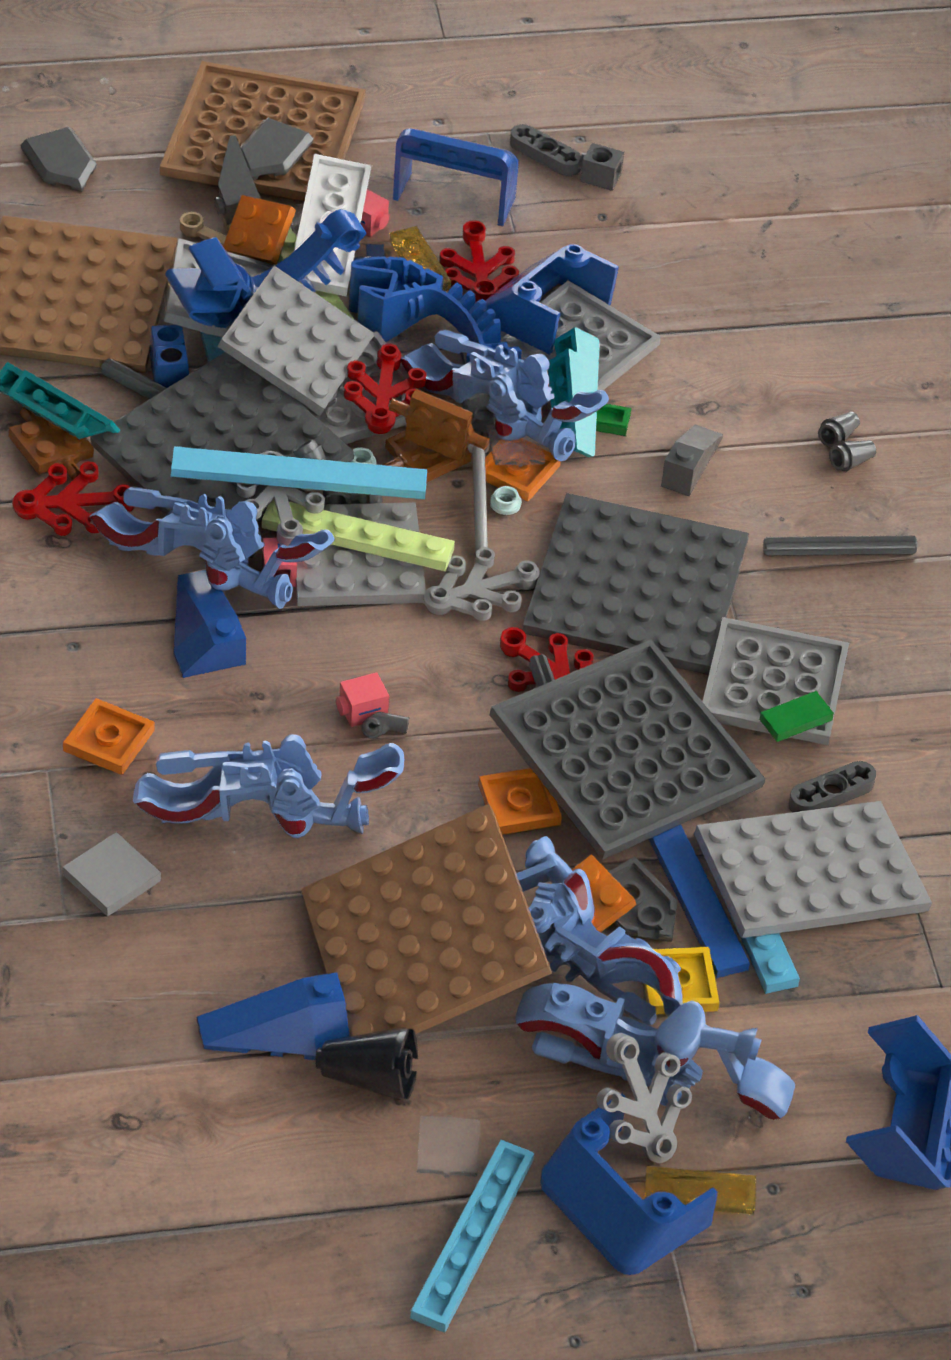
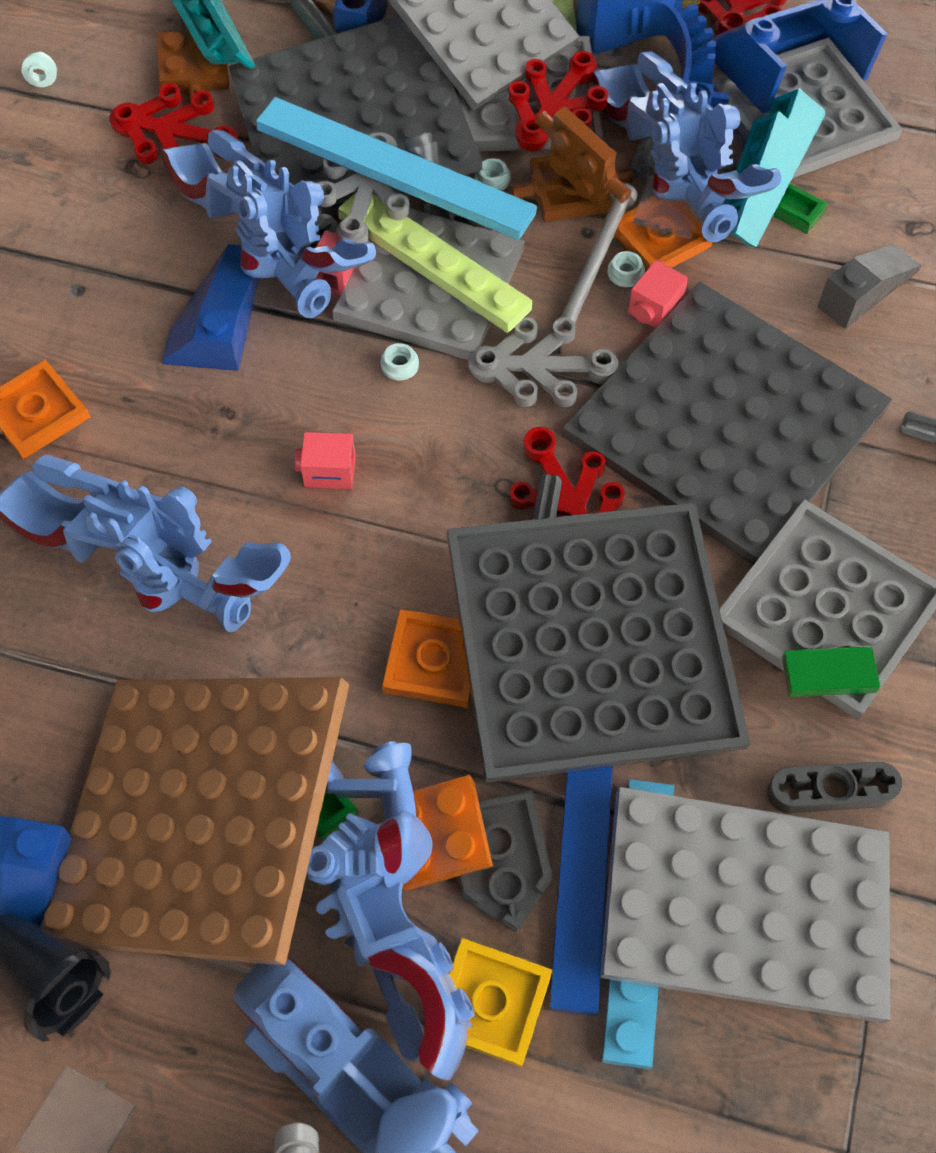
camera: 30 degrees right, 15 degrees up
(372, 617) = (397, 354): none -> light aqua plate
(383, 722) = (336, 496): dark grey arm -> none
(541, 511) = (656, 294): none -> coral brick

